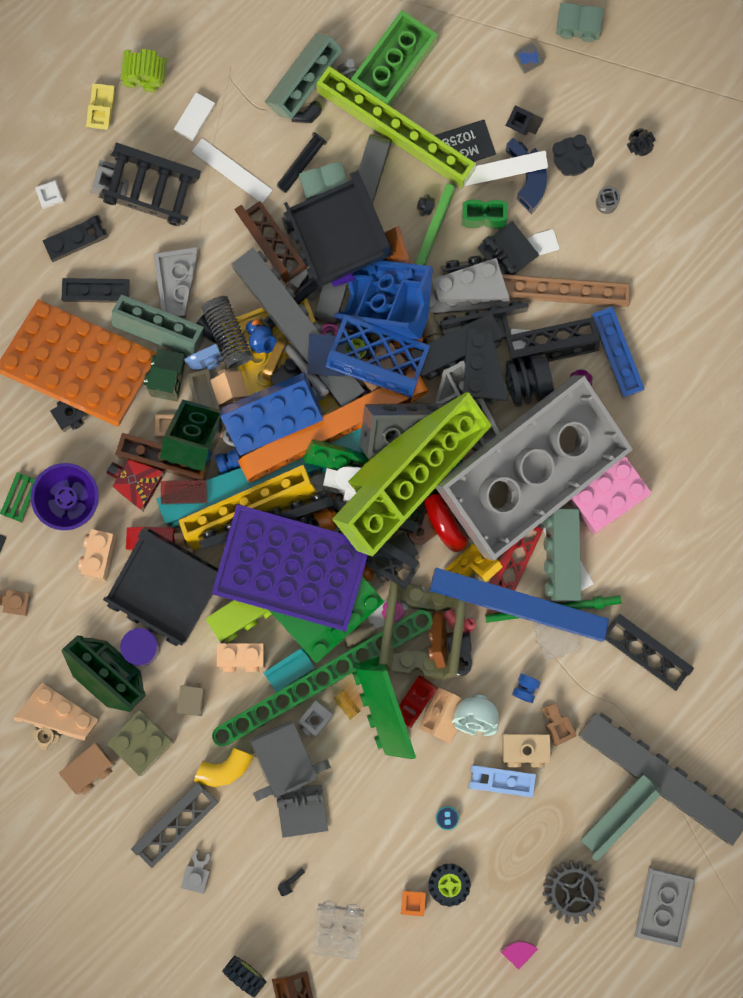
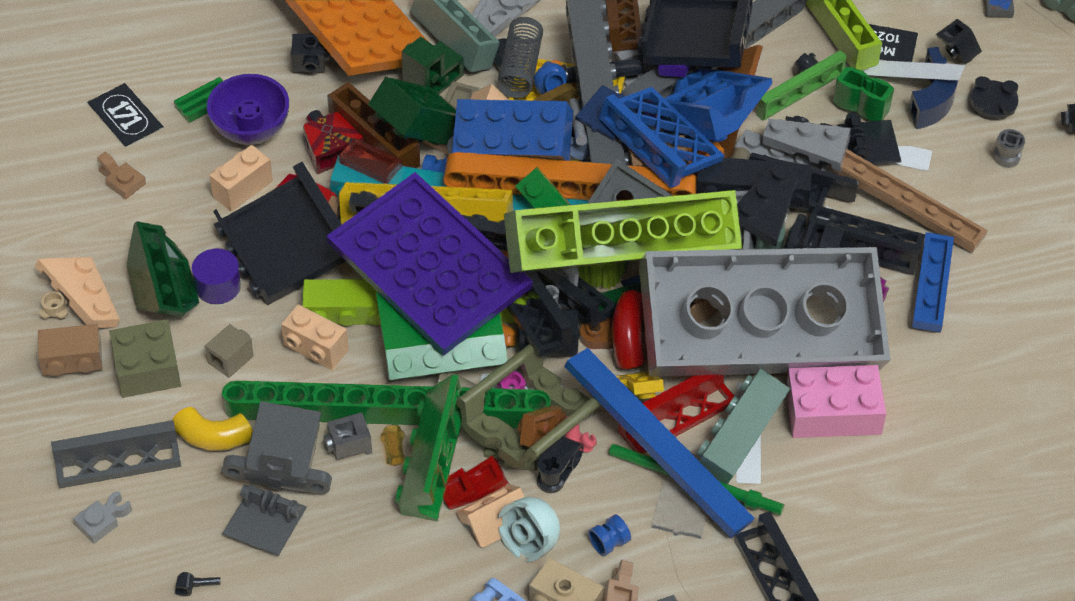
camera: 30 degrees right, 30 degrees down
(206, 358) = (481, 65): medium blue plate -> none
(289, 670) = (356, 369): teal panel -> none

